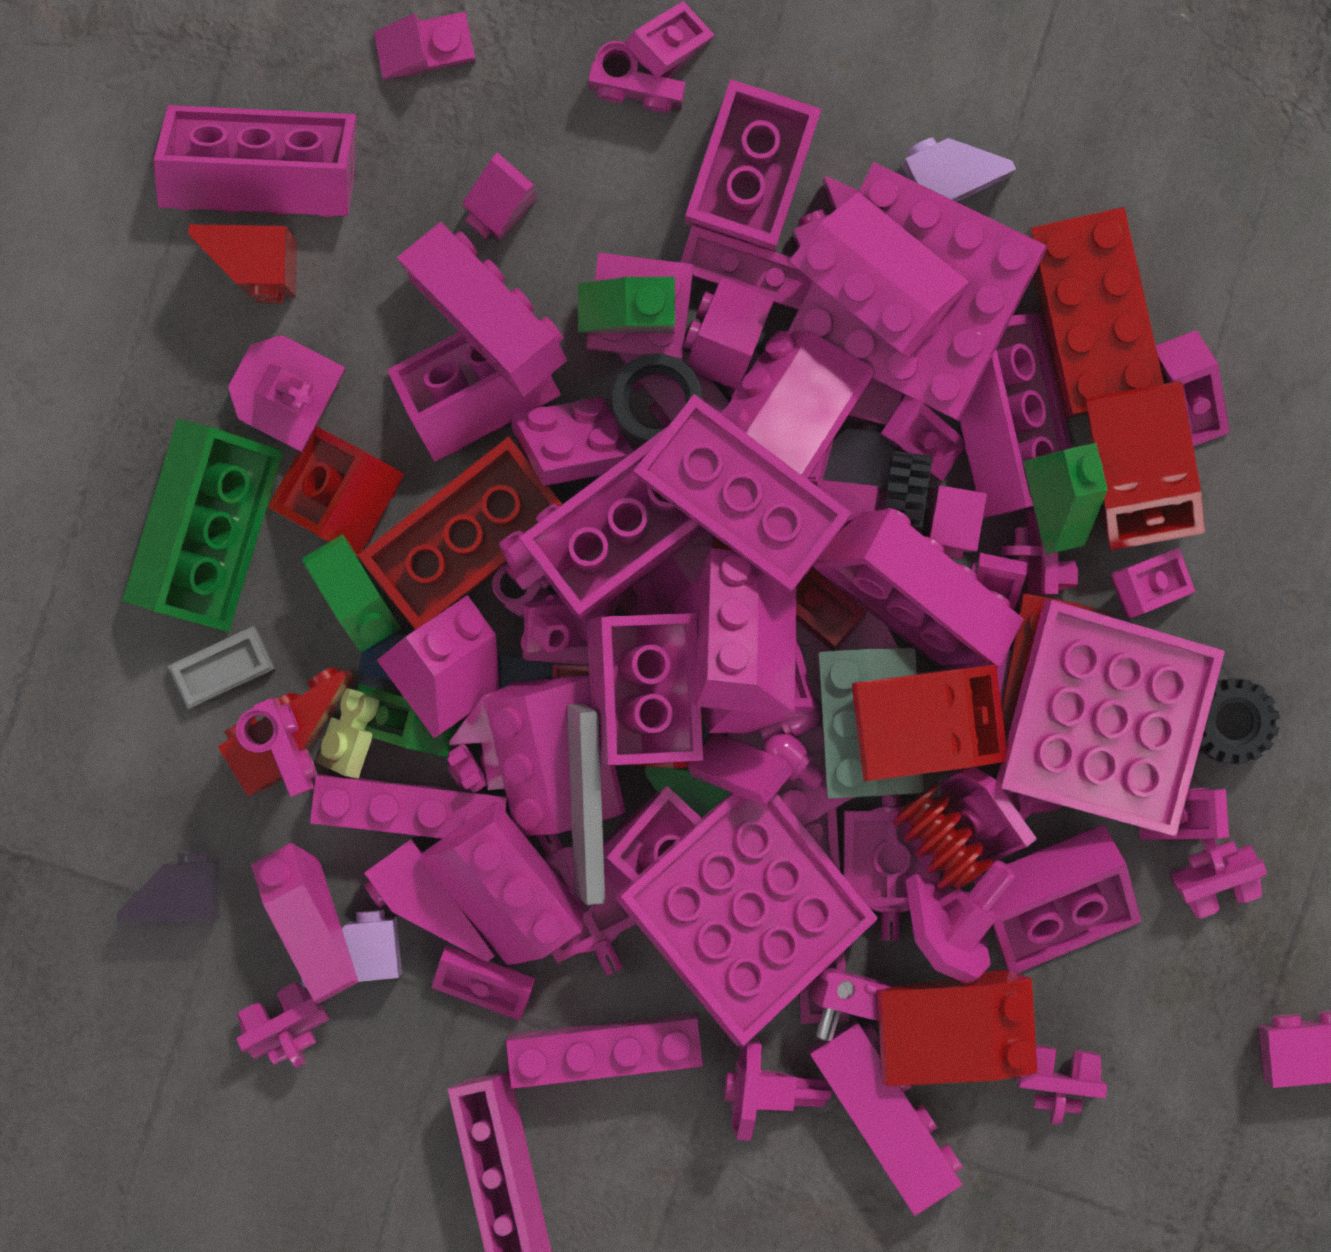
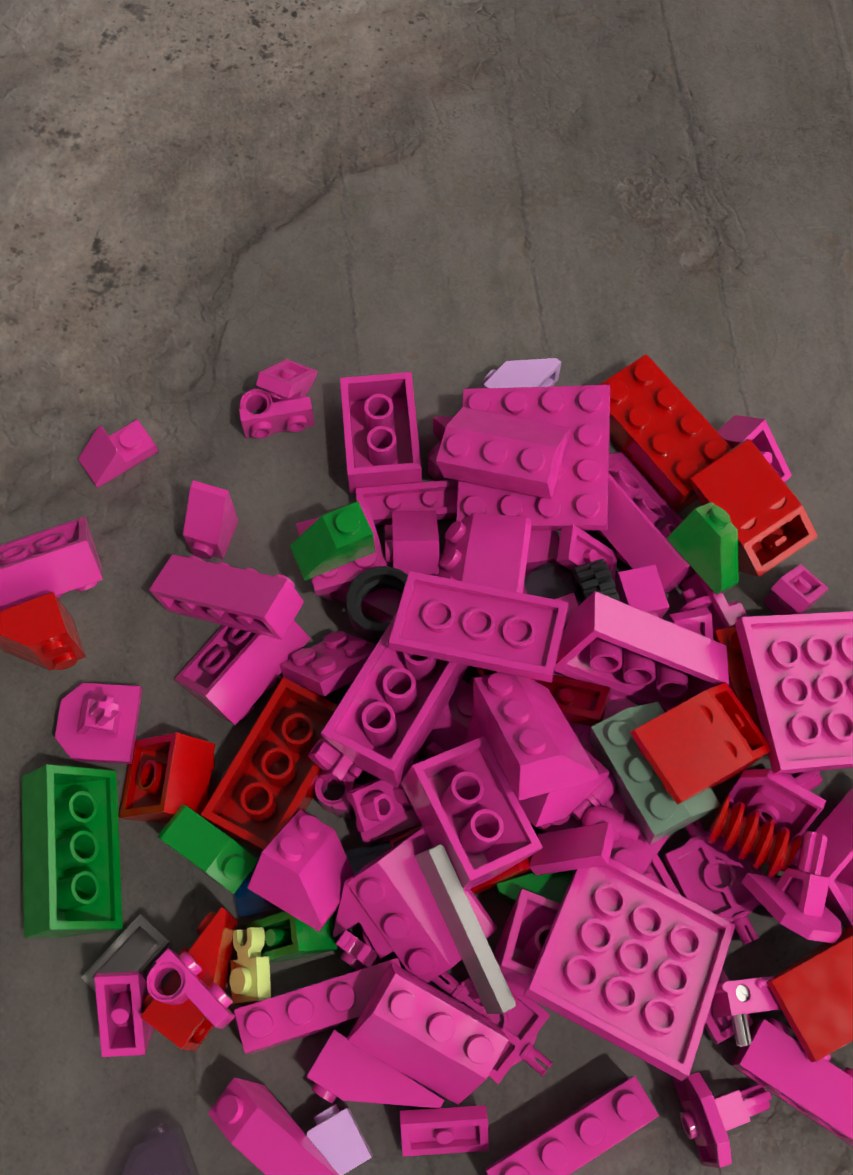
camera: 20 degrees left, 20 degrees down
(199, 730) = (119, 1012): none -> dark pink slope

